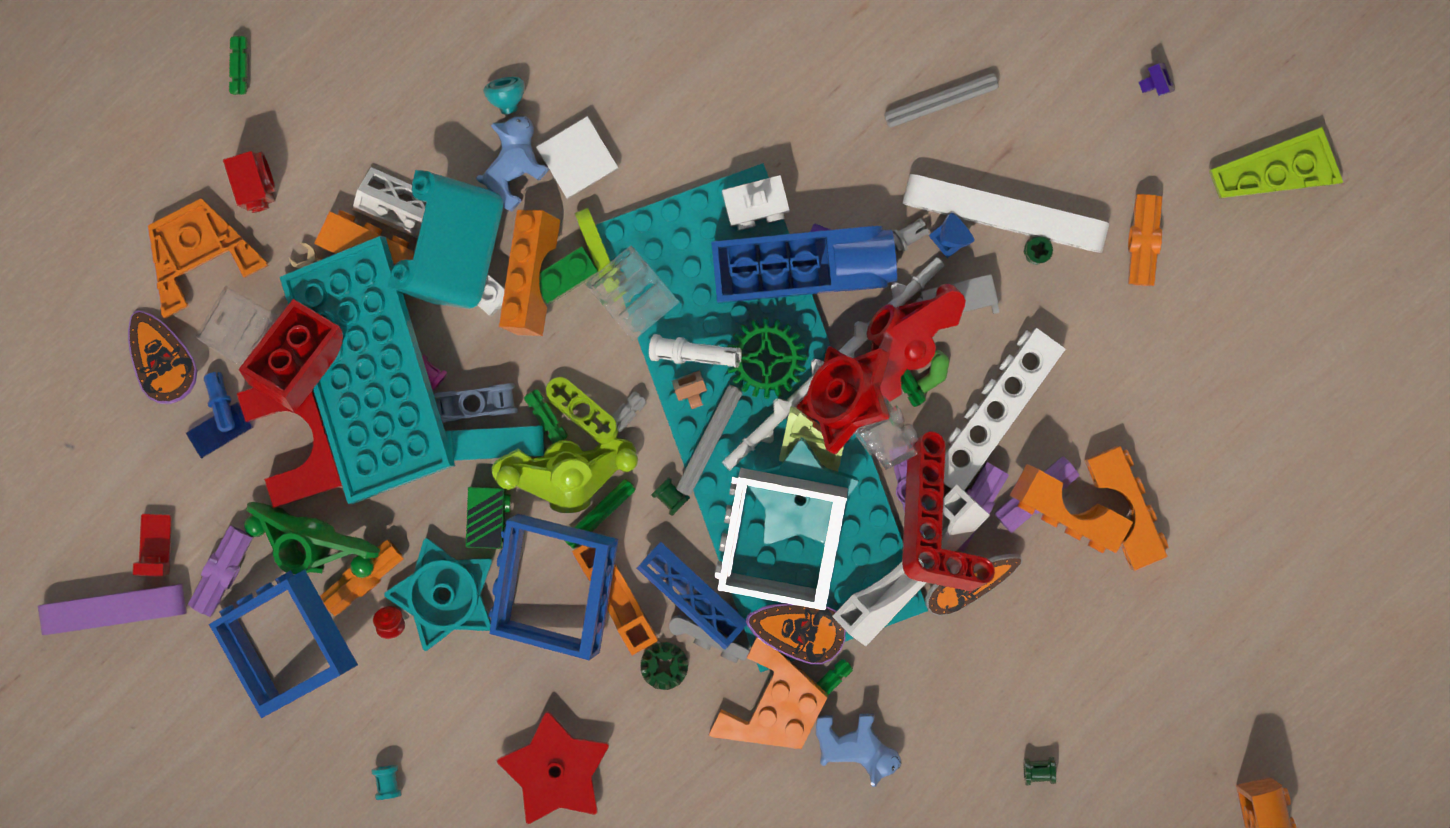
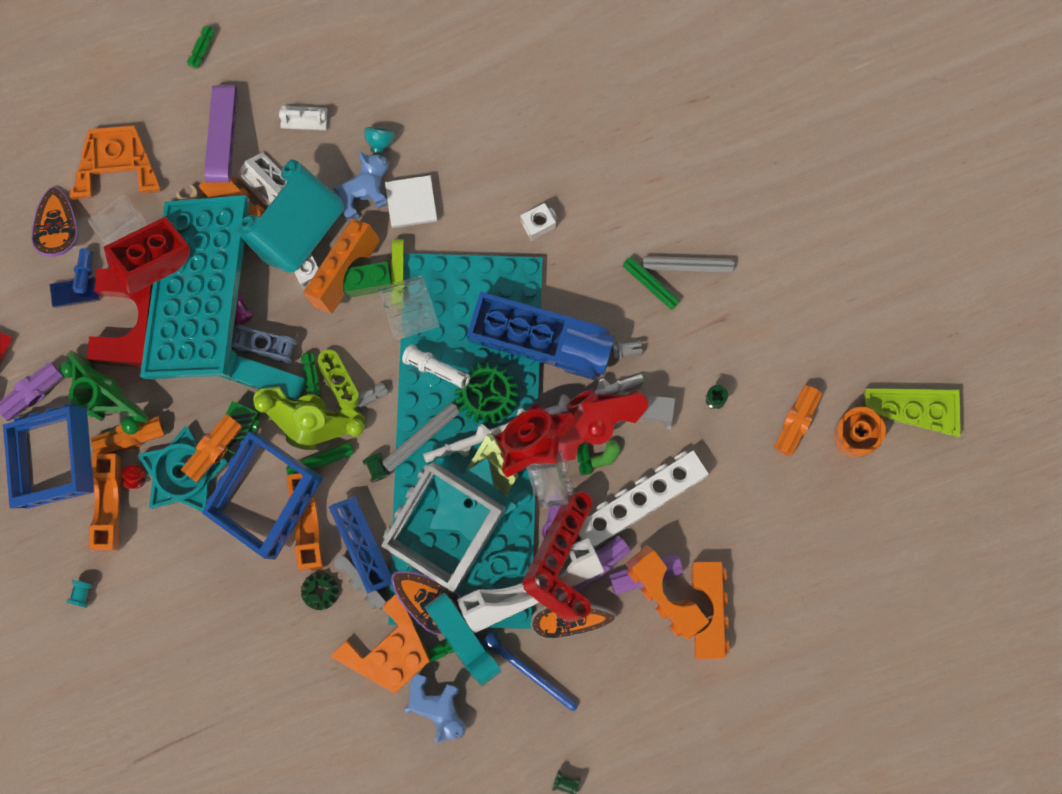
camera: 25 degrees right, 10 degrees down
(251, 180) = (173, 125): red brick -> none
(313, 167) = (221, 133): none -> medium lavender beam
(373, 668) = (107, 490): none -> orange arch
(402, 104) = (303, 118): none -> white hinge
(470, 555) = (211, 448): none -> orange piece
(550, 748) = (224, 636): red plate -> none
(690, 387) = (422, 392): nougat tile -> none
(737, 133) = (533, 230): none -> white brick
(756, 202) = (524, 279): white brick -> none
(857, 659) = (462, 640): none -> teal beam
(861, 556) = (496, 567): none -> teal tile
(891, 646) = (492, 643): none -> blue piece
(906, 141) = (651, 283): none -> green axle
(951, 235) = (657, 361): blue tile -> none
(1006, 213) = (703, 361): white beam -> none
(1159, 80) = (851, 310): dark purple tile -> none
(1237, 237) = (869, 424): none -> orange brick

